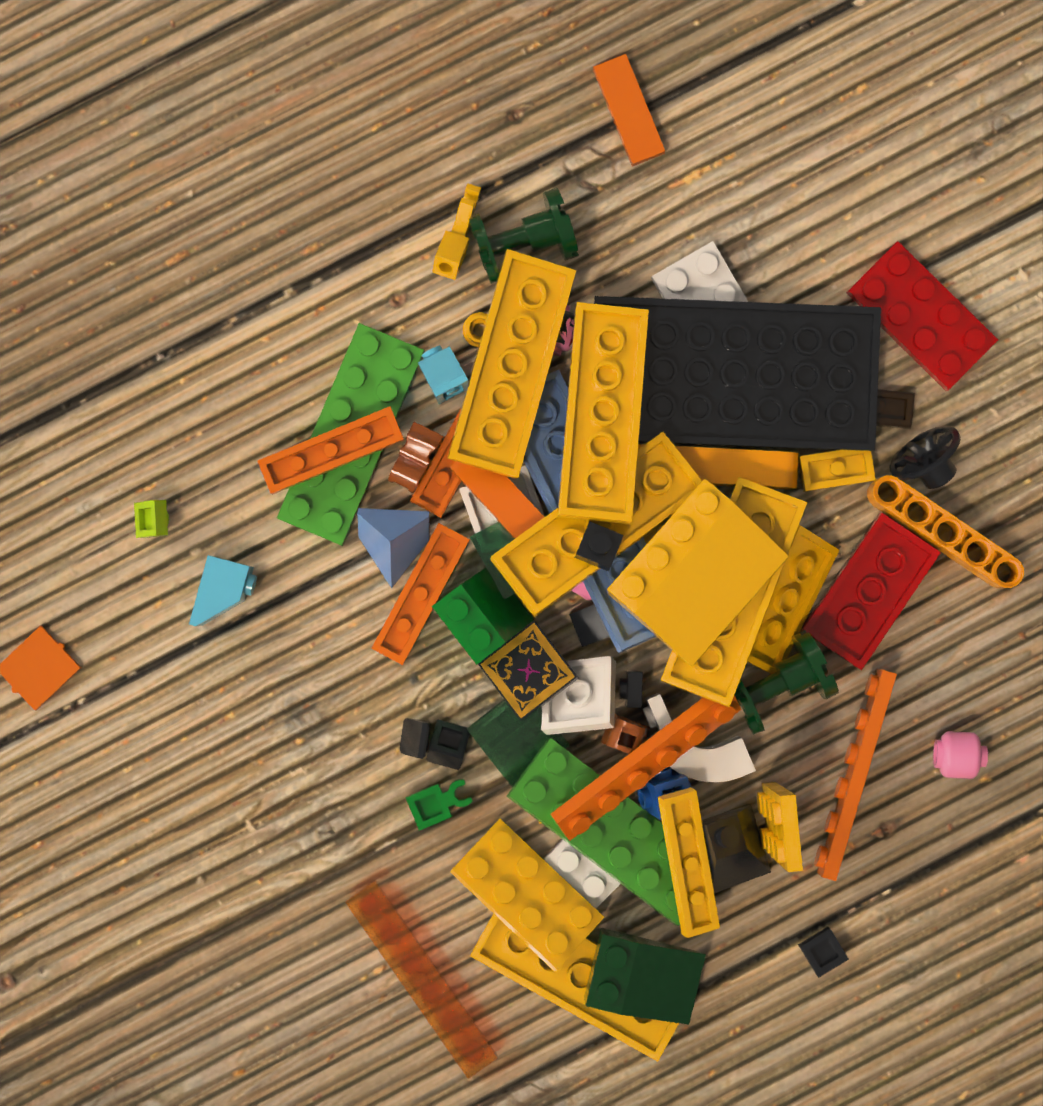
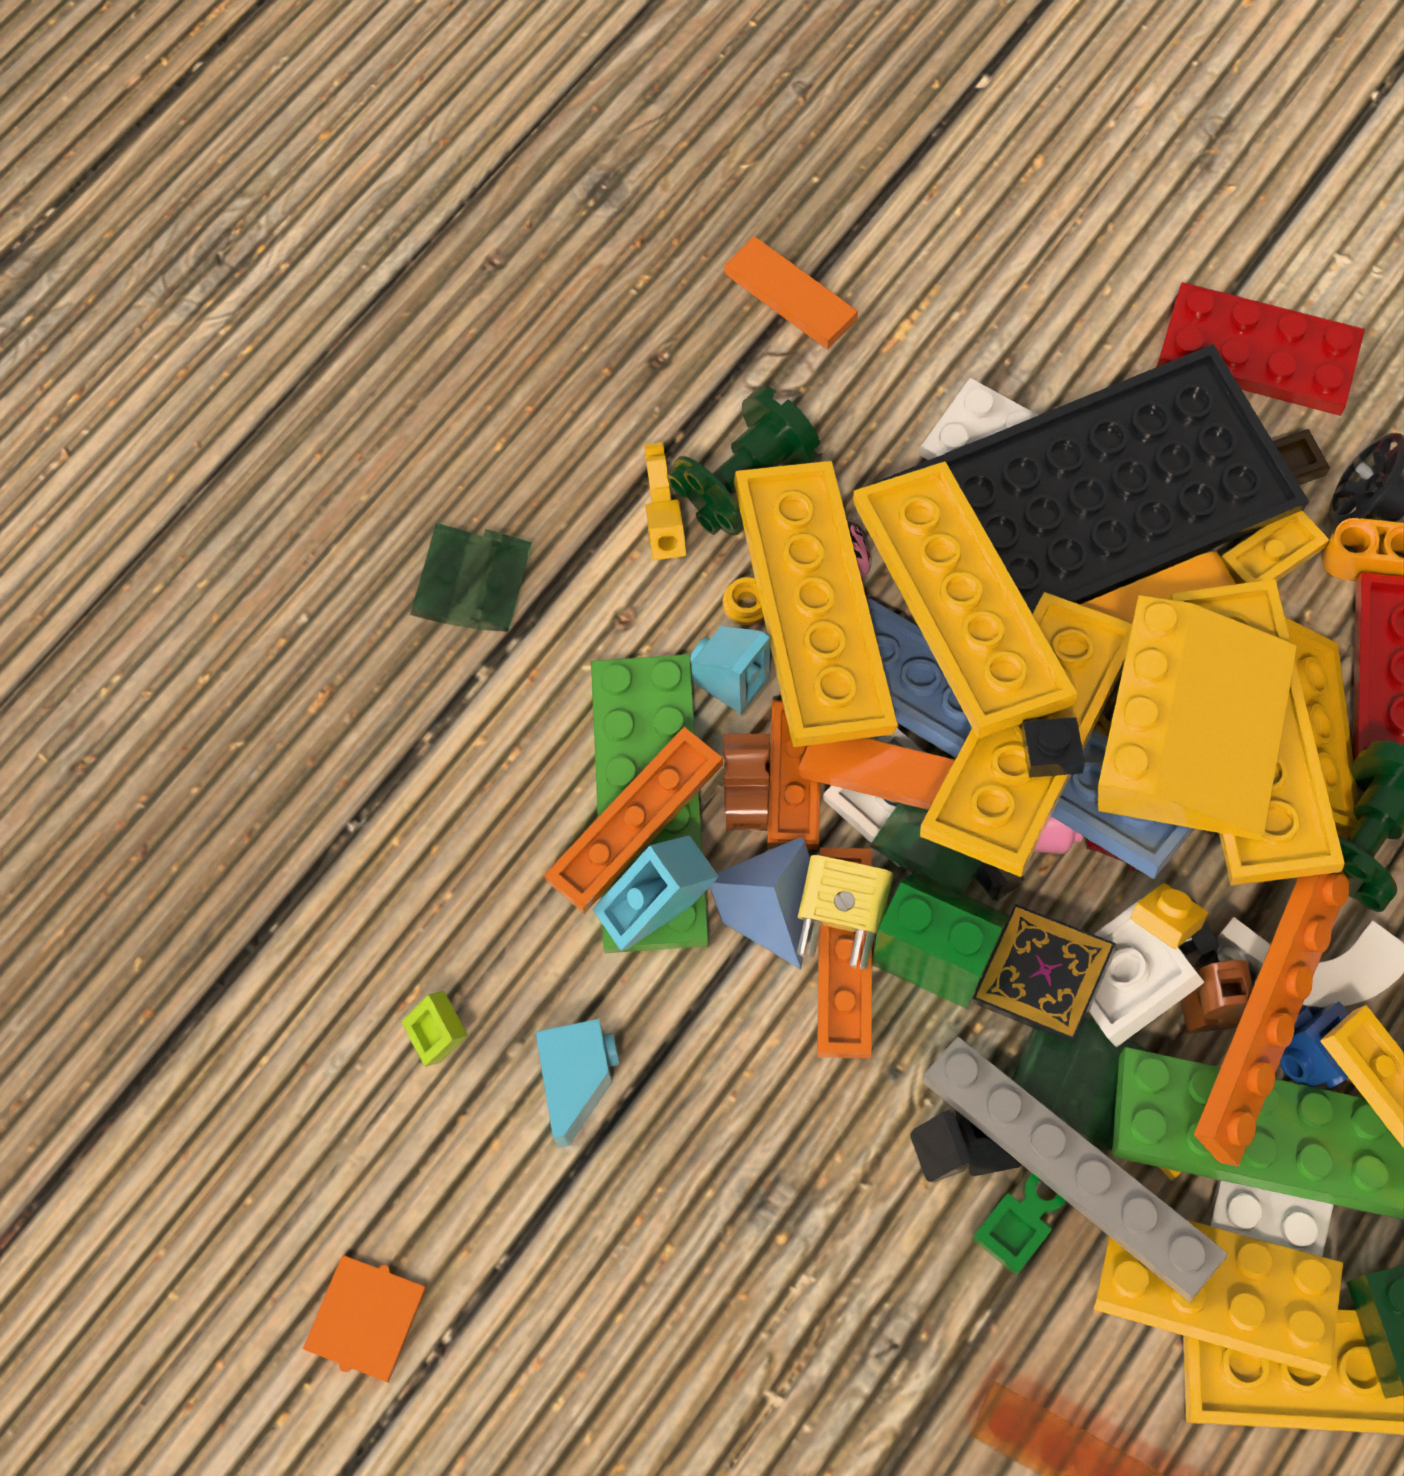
camera: 20 degrees left, 20 degrees down
(309, 222) = (471, 578): none -> clear green slope
(320, 504) = (655, 890): none -> medium azure slope
(433, 565) = (843, 898): none -> light yellow piece
(479, 790) = (1075, 1169): none -> light grey plate
(588, 625) = (1089, 880): black slope -> none
(617, 677) = (1169, 915): none -> yellow plate

